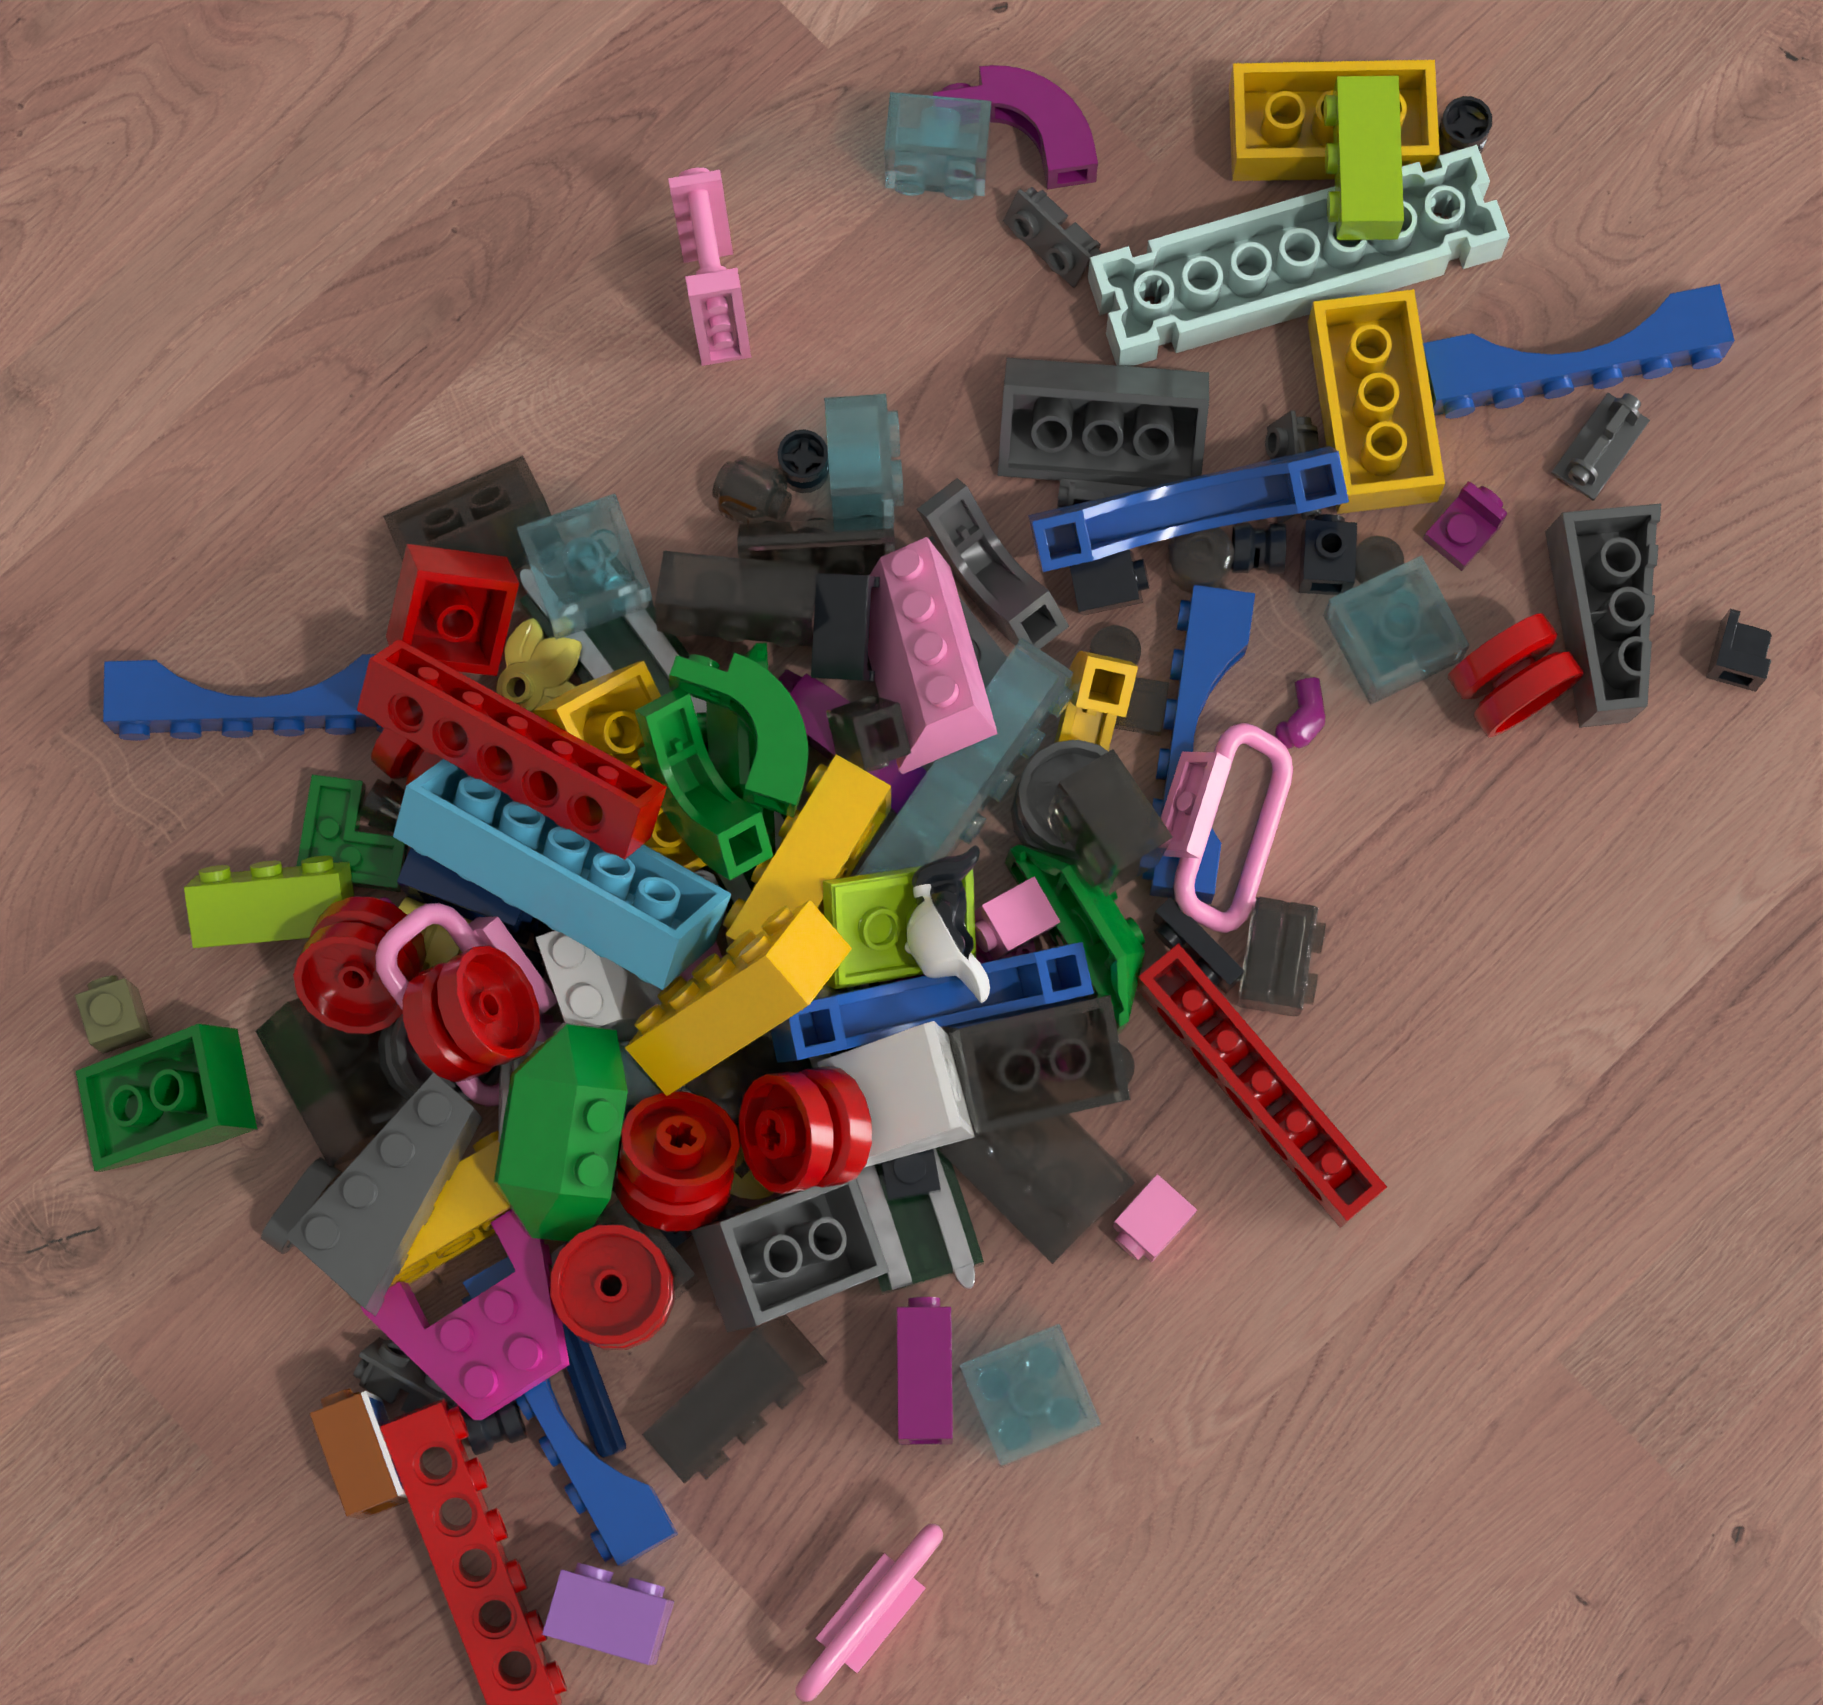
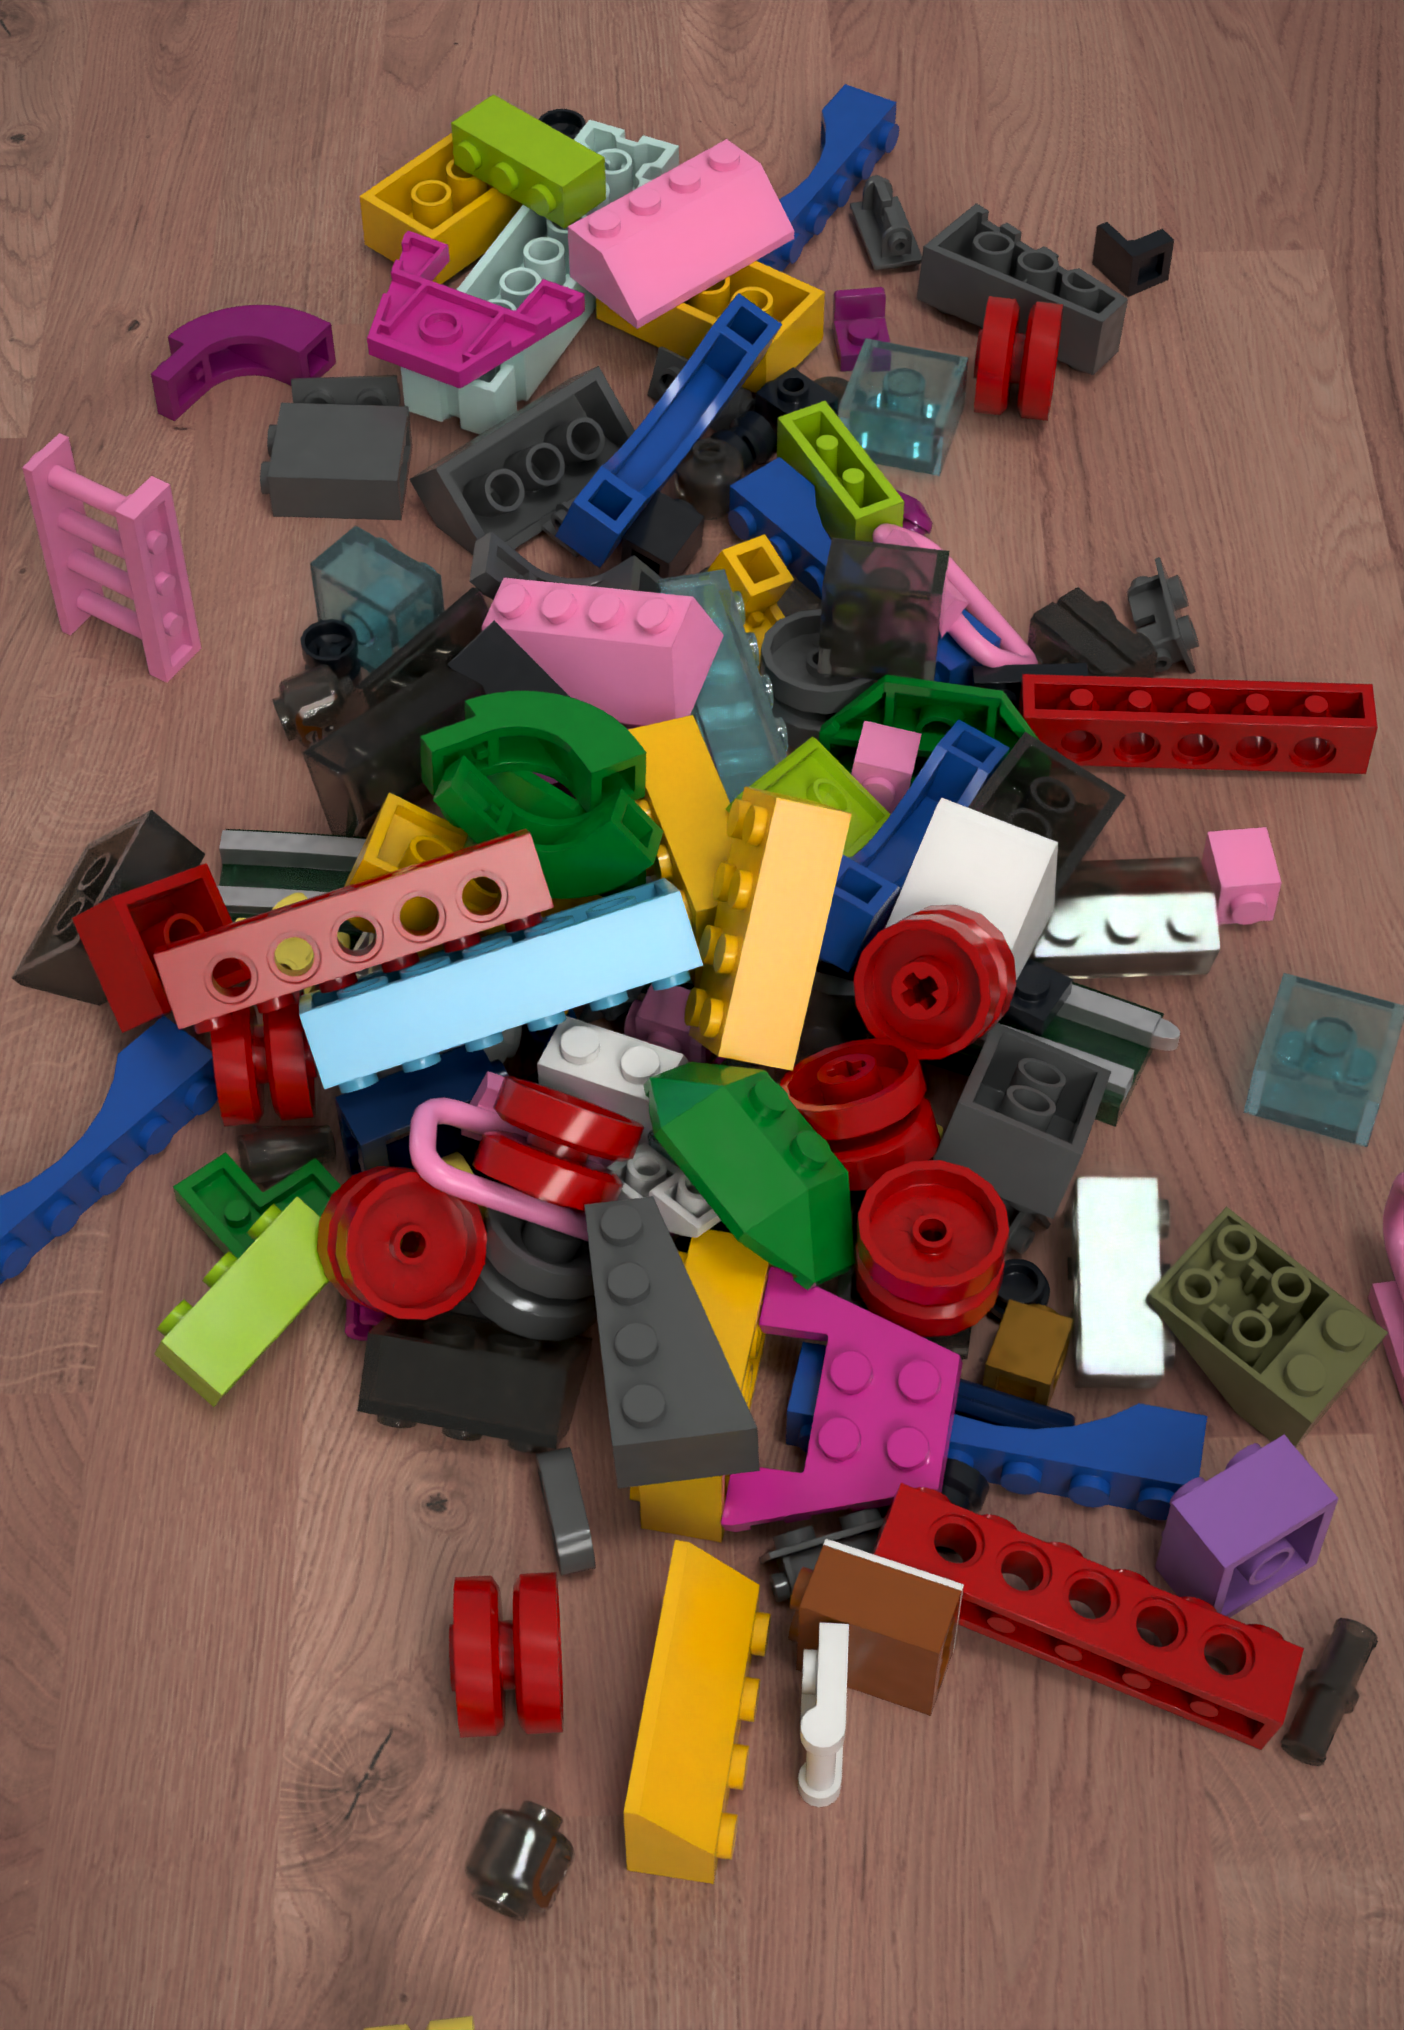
camera: 50 degrees left, 25 degrees down
(68, 1376) = (519, 1860): none -> clear smoke head
(113, 1014) = (204, 1525): olive brick -> none
(166, 1097) = (331, 1549): green slope -> none
(168, 1265) = (505, 1655): none -> red wheel
(225, 1398) = (693, 1719): none -> yellow slope
(295, 1464) = (824, 1715): none -> white plate
(585, 566) = (247, 820): clear light blue brick -> none
(641, 1385) = (1028, 1352): none -> pearl gold brick
(689, 1338) = (1023, 1284): none -> black plate
(771, 1517) = (1264, 1328): none -> olive slope
(869, 732) = (635, 695): clear smoke brick -> none
(924, 1372) = (1235, 1113): magenta brick -> none
(937, 145) = (194, 396): clear light blue brick -> none
(937, 925) = (858, 772): hair -> none
(986, 289) = (338, 461): none -> dark grey brick
(1136, 266) = (453, 332): none -> dark pink wing
(1275, 650) = (849, 486): none -> lime brick
(1377, 963) = (1160, 601): none -> dark grey hinge
(1389, 340) = (678, 234): none -> bright pink slope

